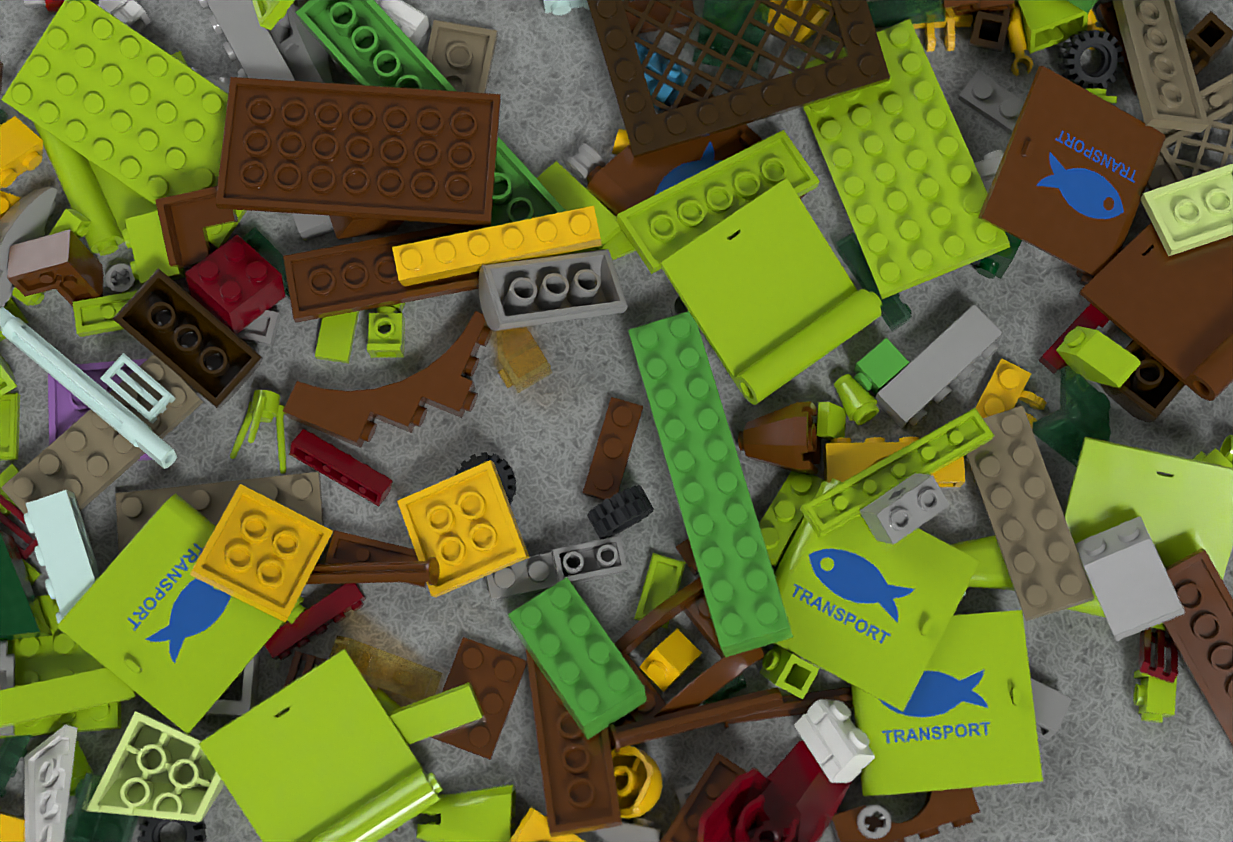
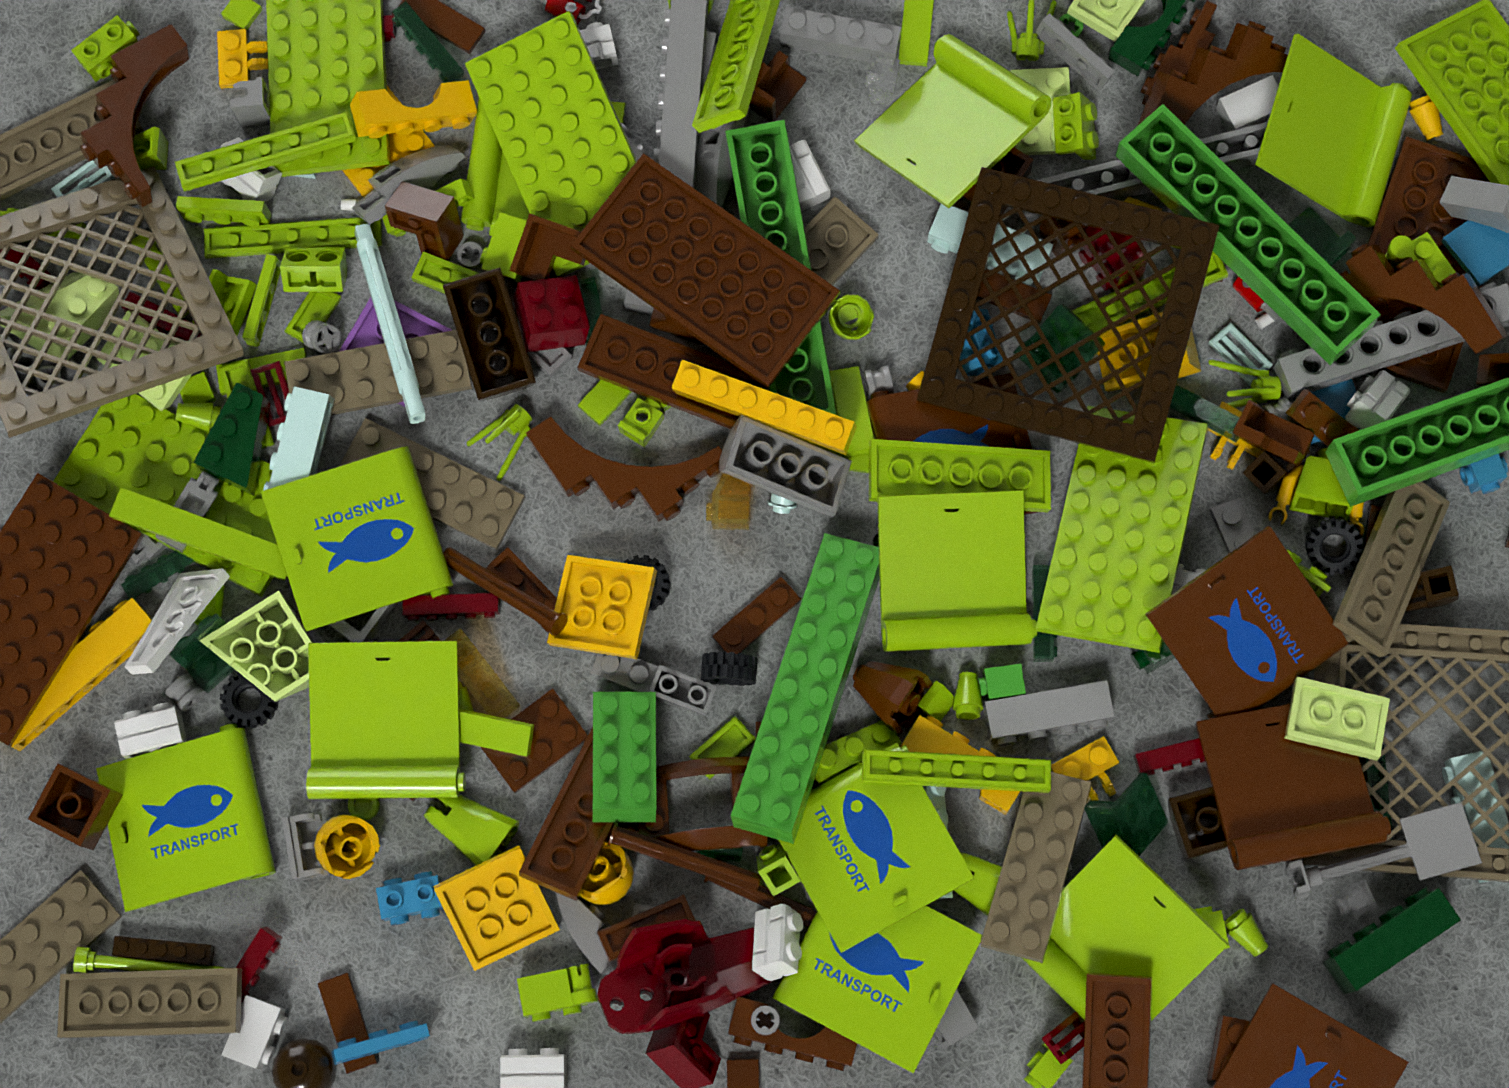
camera: 35 degrees right, 0 degrees up
(31, 444) = (328, 340): none -> light grey wheel
(159, 406) = (436, 372): light aqua tile -> none
(261, 553) = (442, 531): yellow plate -> none
(341, 467) = (543, 502): dark red piece -> none
(514, 112) = (846, 309): none -> lime hair
(567, 329) = (780, 504): none -> light aqua plate
(670, 660) = (694, 804): yellow brick -> none
(904, 508) = (939, 800): light grey brick -> none
(1097, 357) = (1173, 780): lime slope -> none
(1129, 578) = (1078, 962): light grey slope -> none

